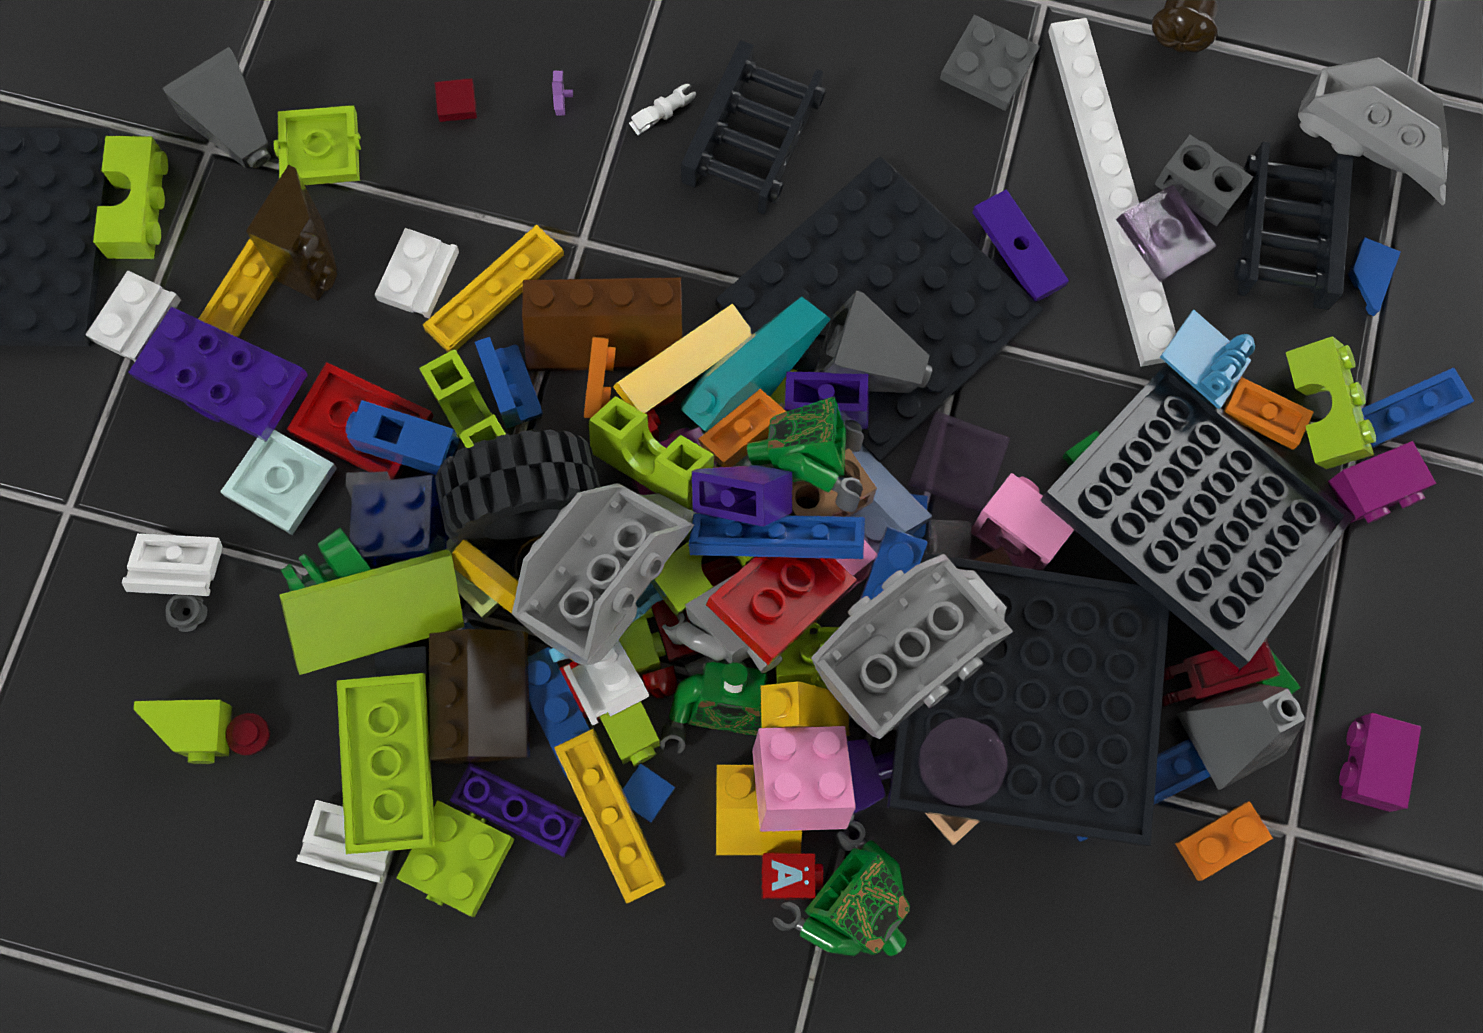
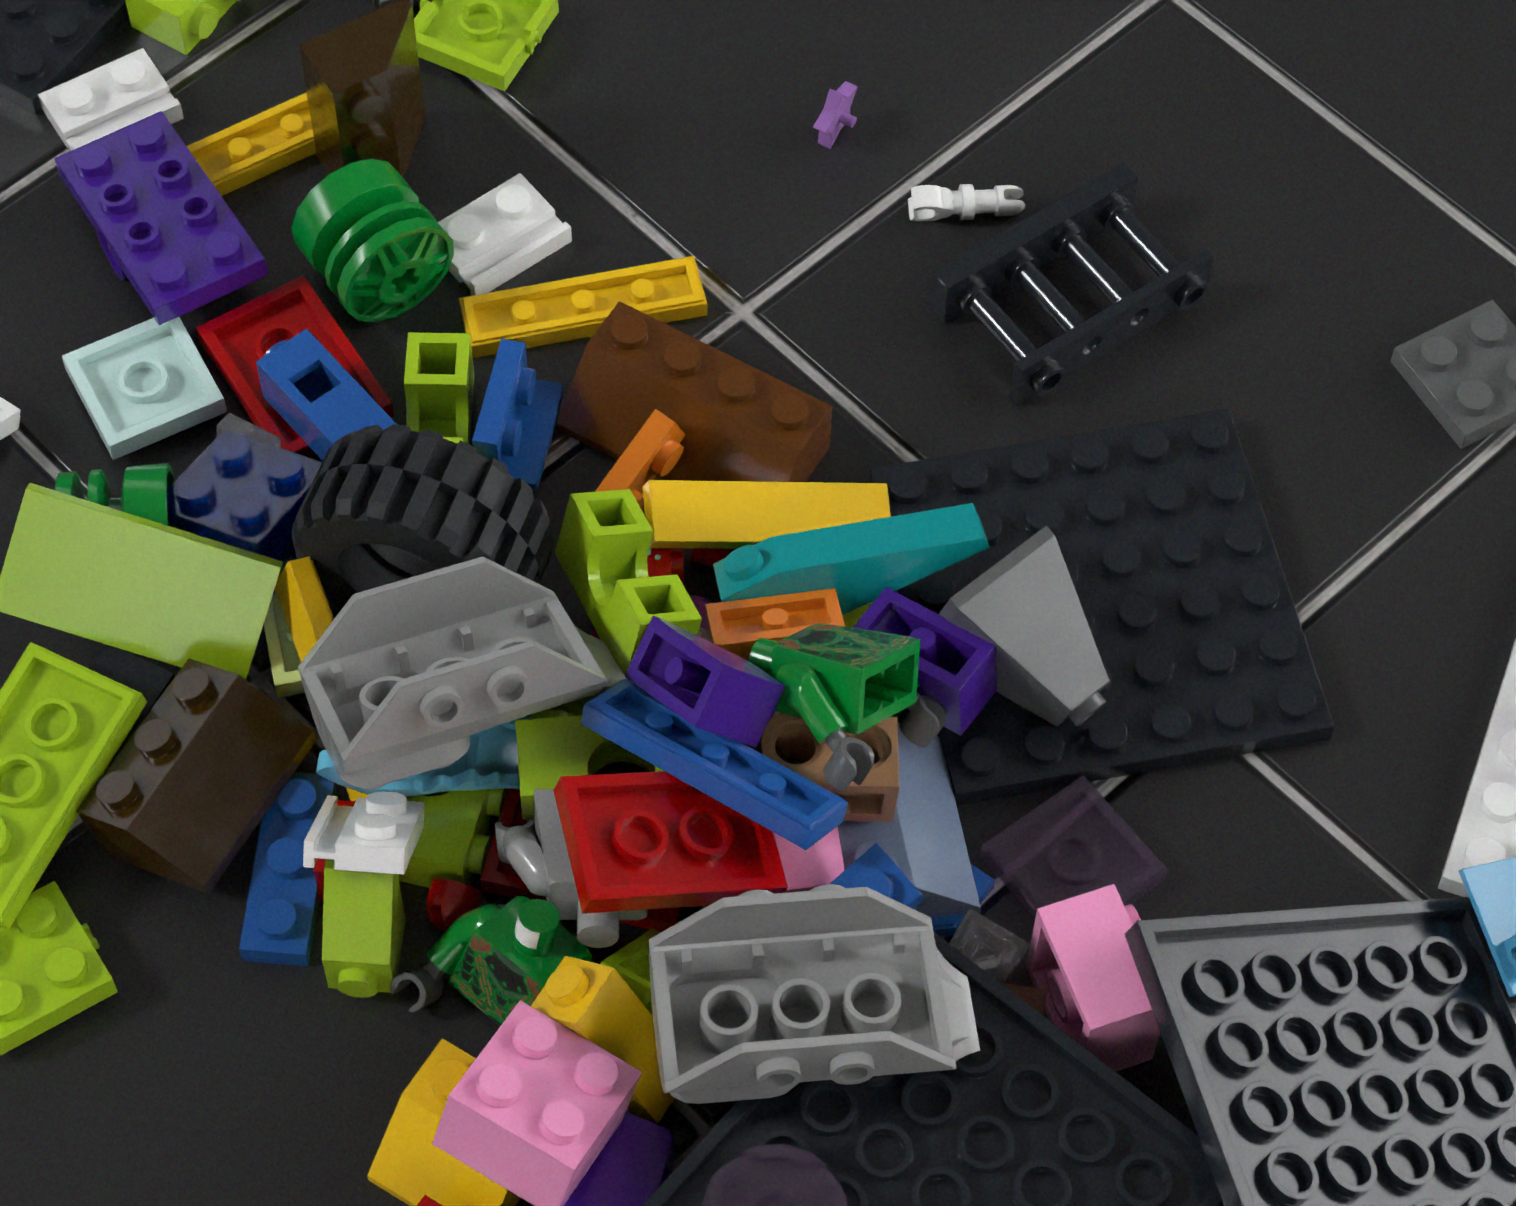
camera: 35 degrees right, 15 degrees down
(355, 320) = (372, 240): none -> green wheel
(455, 100) = (696, 58): dark red tile -> none
(539, 821) = (161, 985): dark purple tile -> none
(610, 816) = (259, 1032): yellow tile -> none
(647, 793) = (330, 1038): blue tile -> none
(1010, 228) = (1356, 598): dark purple tile -> none

